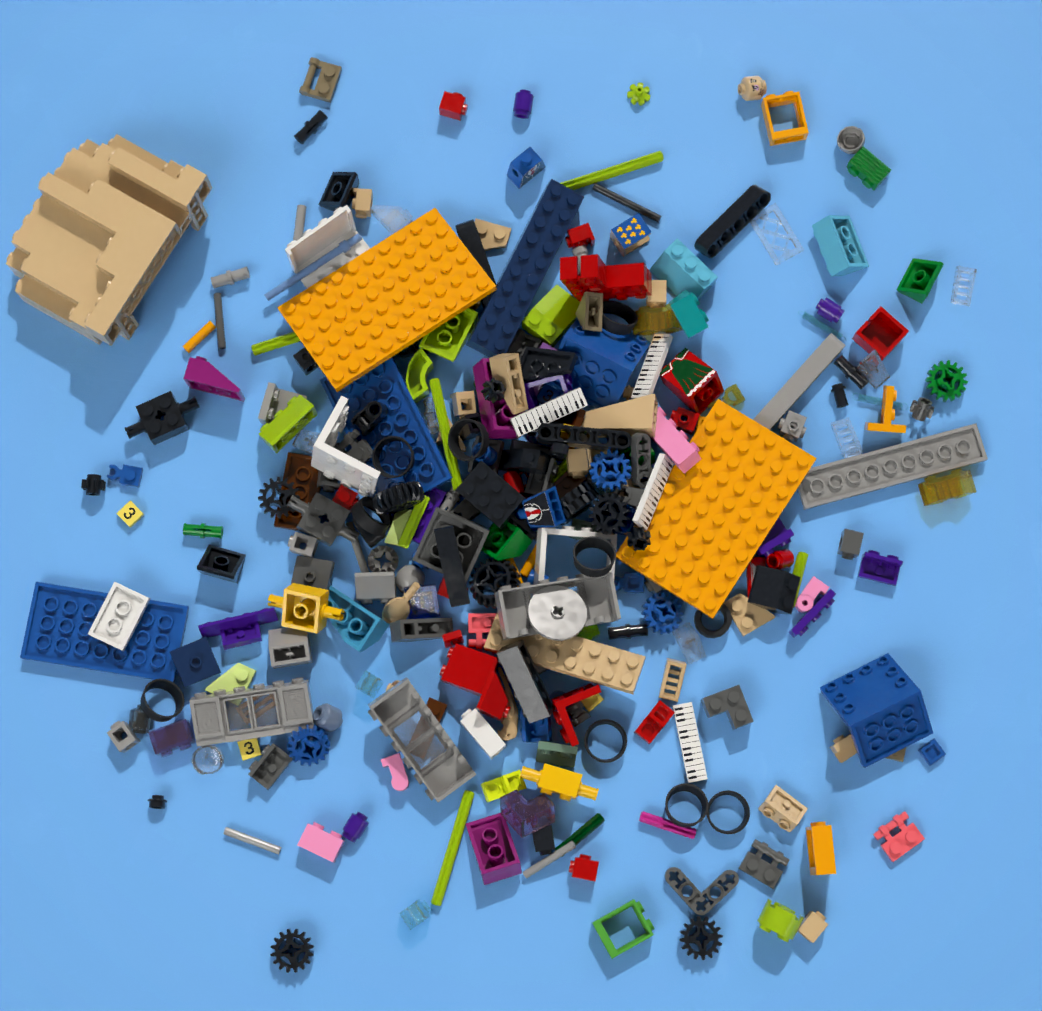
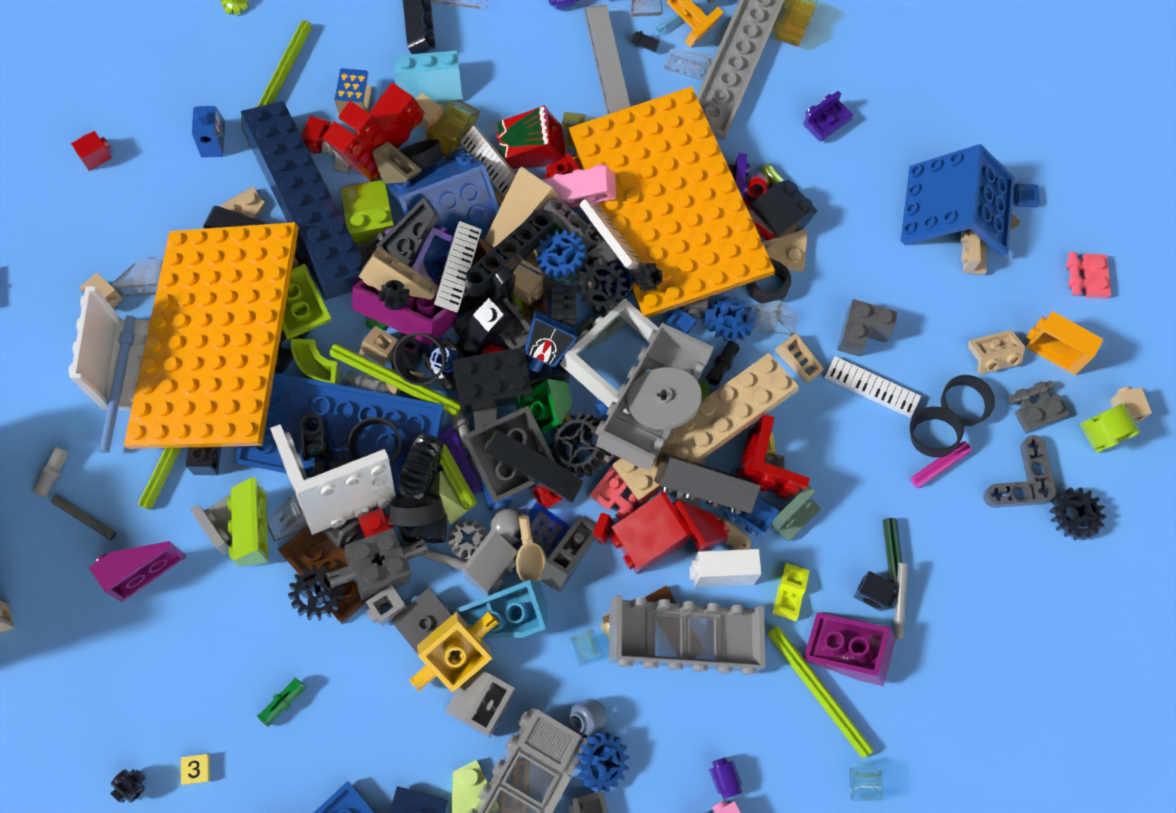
camera: 55 degrees left, 10 degrees down
(128, 475) = (152, 740): blue plate -> none
(151, 413) = (109, 651): black brick -> none
(199, 336) = (79, 550): light orange piece -> none
(221, 563) = (333, 709): black slope -> none
(239, 629) = (418, 743): dark purple bracket -> none
(299, 222) = (60, 363): light grey piece -> none
(339, 190) = (65, 303): black slope -> none
(399, 776) = (707, 690): bright pink leg -> none
(523, 104) = (150, 94): dark purple brick -> none
(526, 815) = (842, 588): clear purple brick -> none
(529, 564) = (583, 397): light orange piece -> none
(559, 781) = (828, 530): yellow brick -> none
(584, 868) = (933, 572): red brick -> none
(594, 542) = (628, 313): black tyre -> none
(617, 726) = (826, 441): black tyre -> none
(626, 202) = (317, 81): black bar -> none
(646, 924) = (1041, 603): bright green window -> none
(654, 722) = (829, 404): red slope -> none
(688, 314) = (470, 91): teal slope -> none
(792, 426) = (642, 89): light grey brick -> none
(805, 599) = (806, 182): bright pink leg -> none
(813, 614) = (828, 197): dark purple plate -> none
(822, 324) = (555, 20): medium azure piece -> none
(850, 544) = (787, 124): dark grey brick -> none
(851, 372) = (632, 19): black pin -> none

